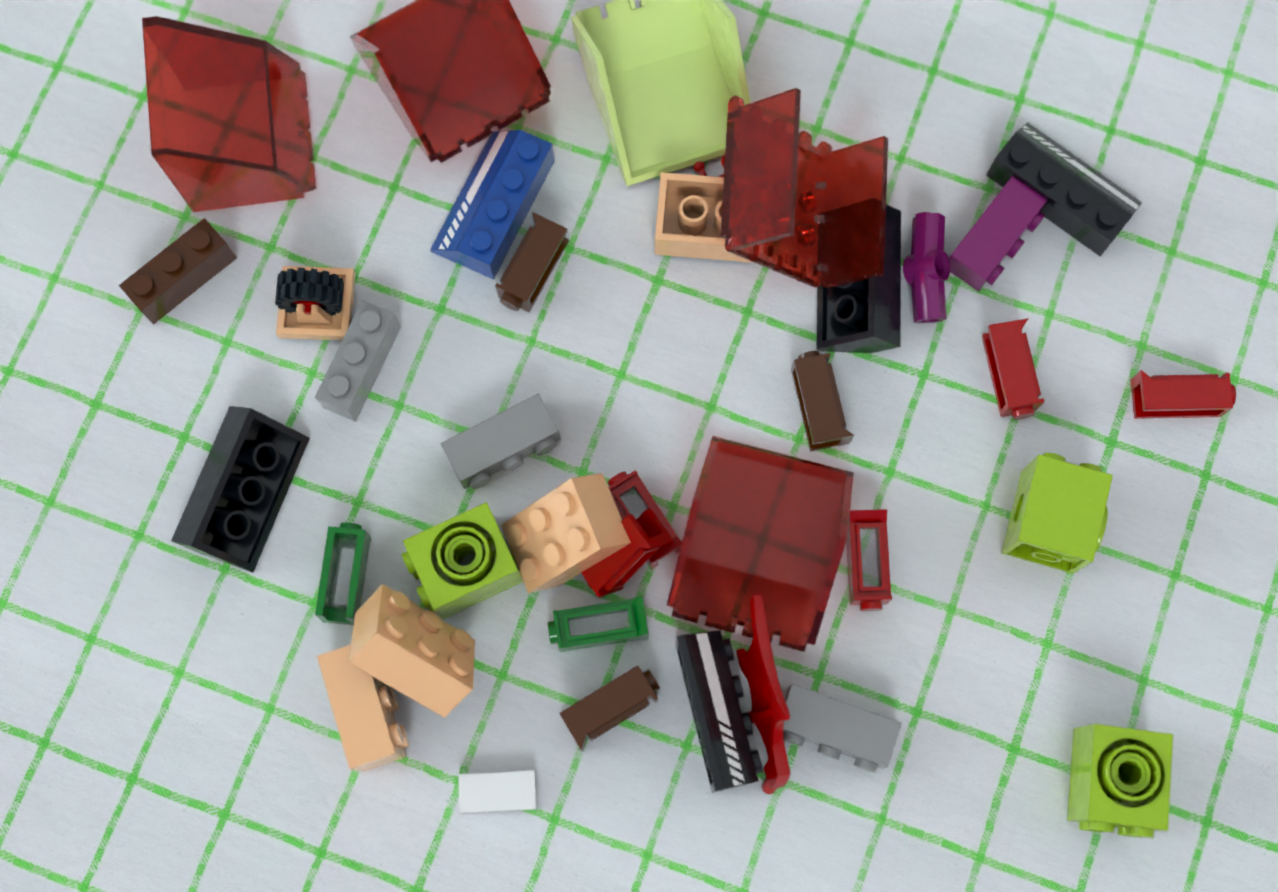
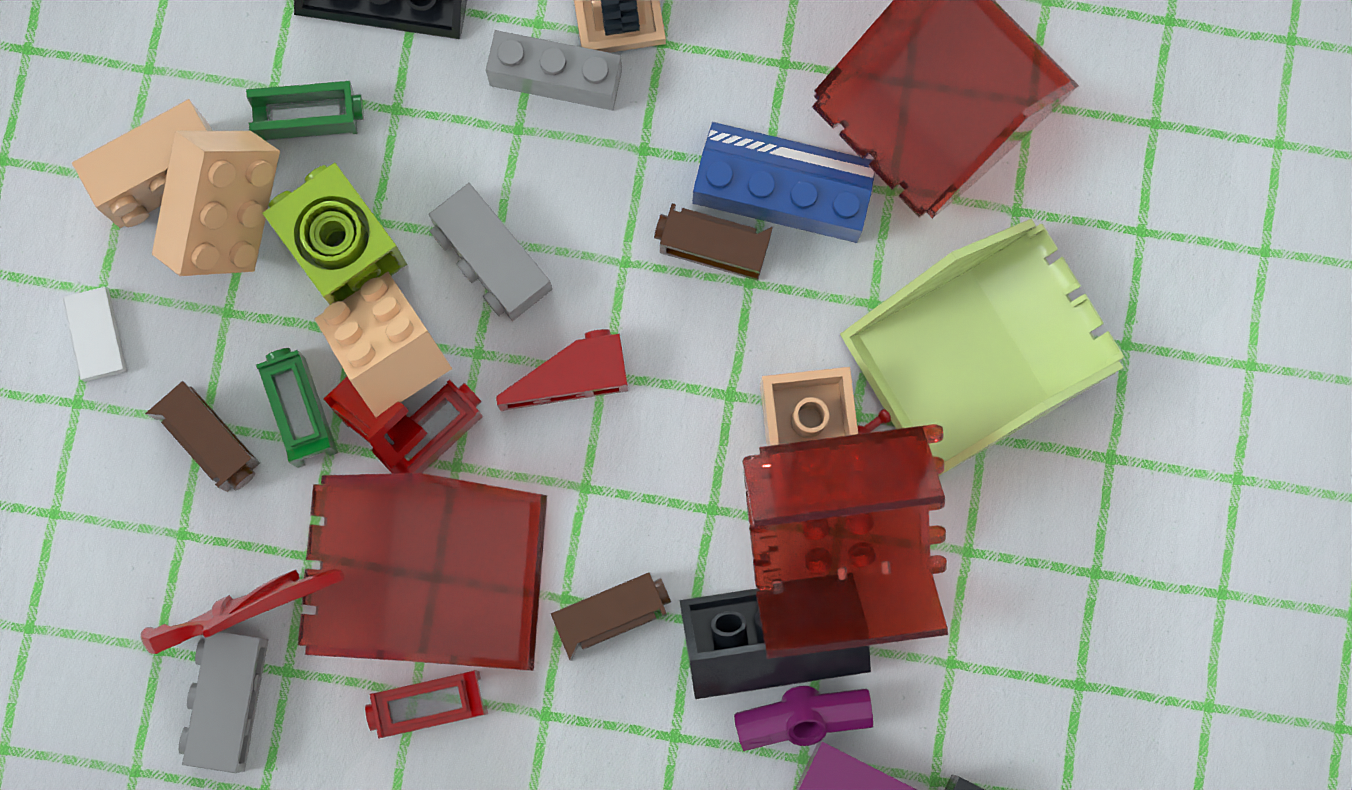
camera: 75 degrees right, 5 degrees up
(615, 386) = (579, 371): none -> red slope
(716, 710) = (214, 558): black slope -> none

